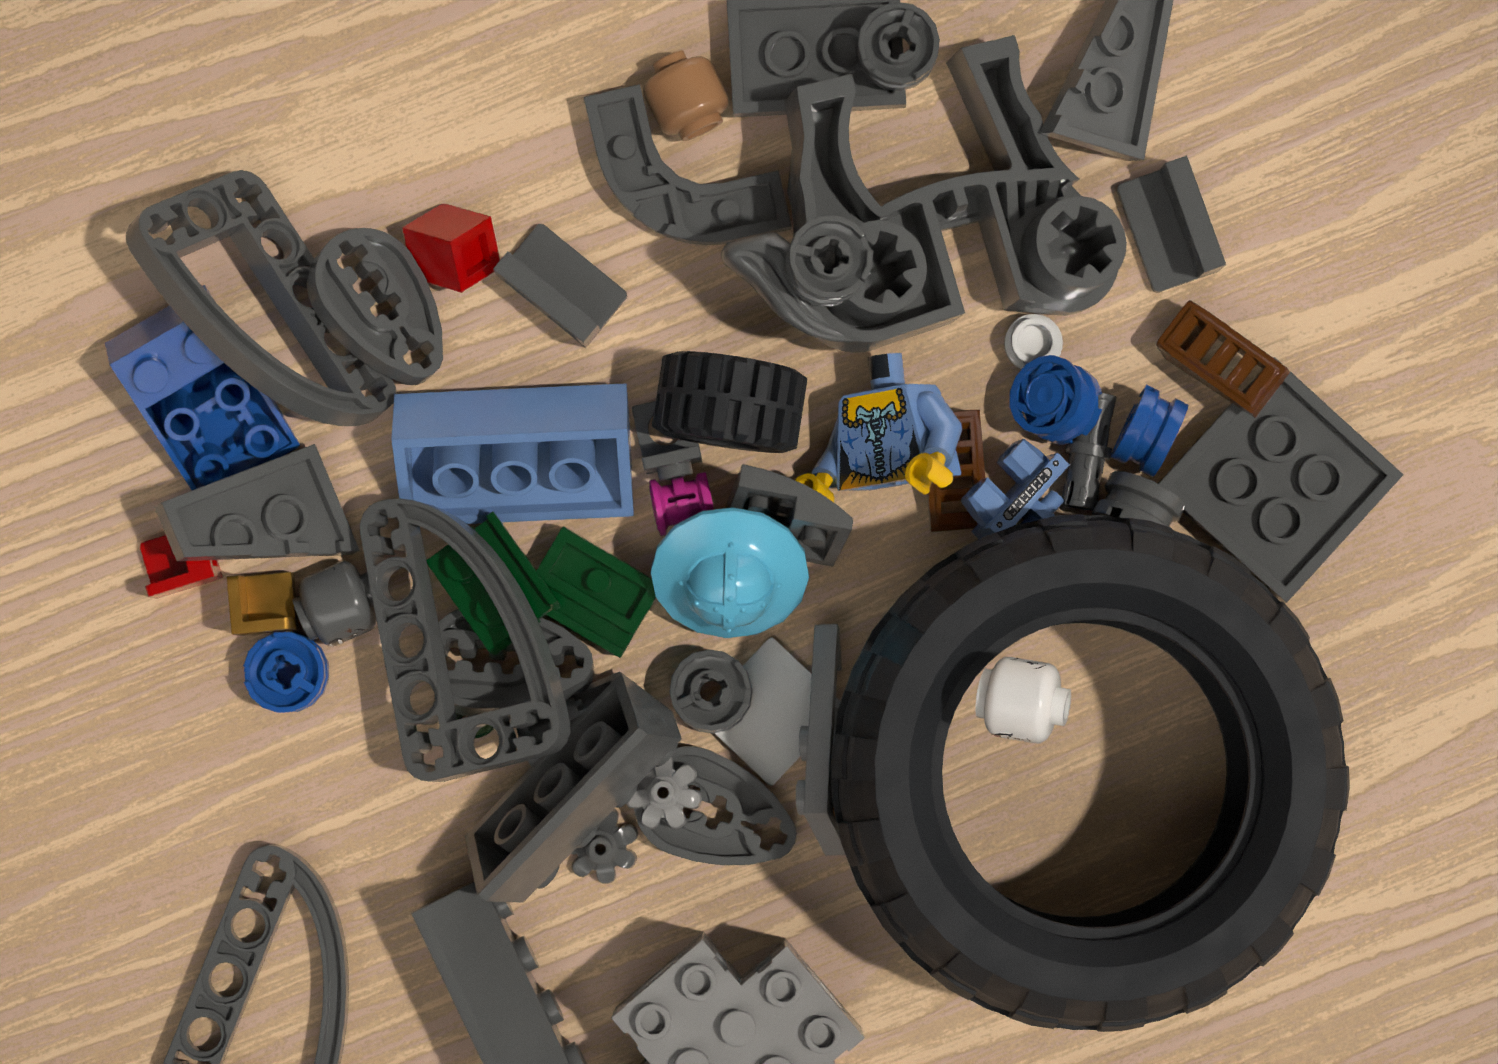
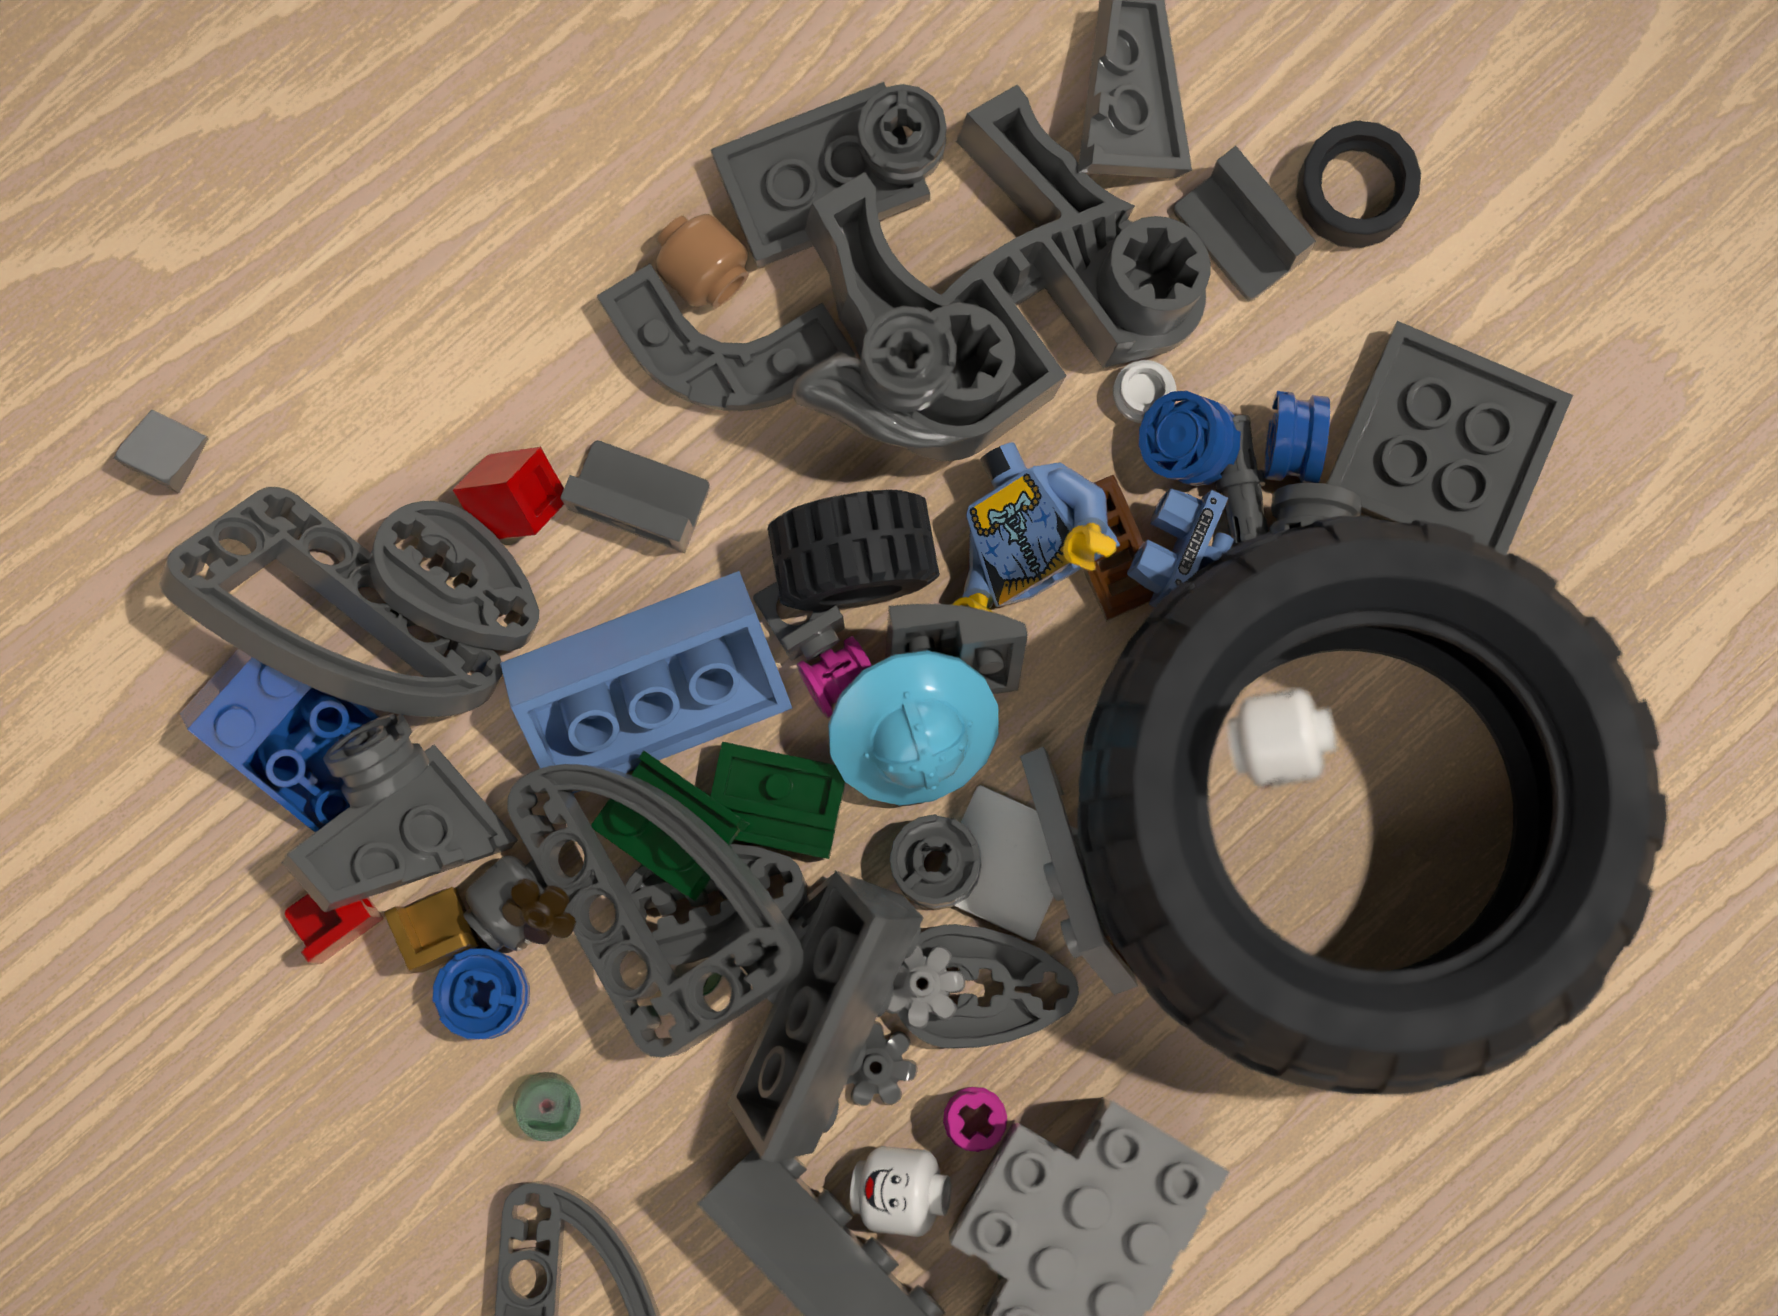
camera: 15 degrees left, 5 degrees down
(161, 104) = (162, 450): none -> slope
(261, 444) = (376, 760): none -> dark grey wheel
(310, 786) = (546, 1106): none -> clear green tile
(360, 623) = (540, 912): none -> dark brown plant
(585, 958) = (899, 1191): none -> white head
(674, 902) = (974, 1098): none -> dark pink bush
(1184, 330) = (1324, 313): reddish brown slope -> none
(1316, 191) = (1378, 142): none -> black tyre

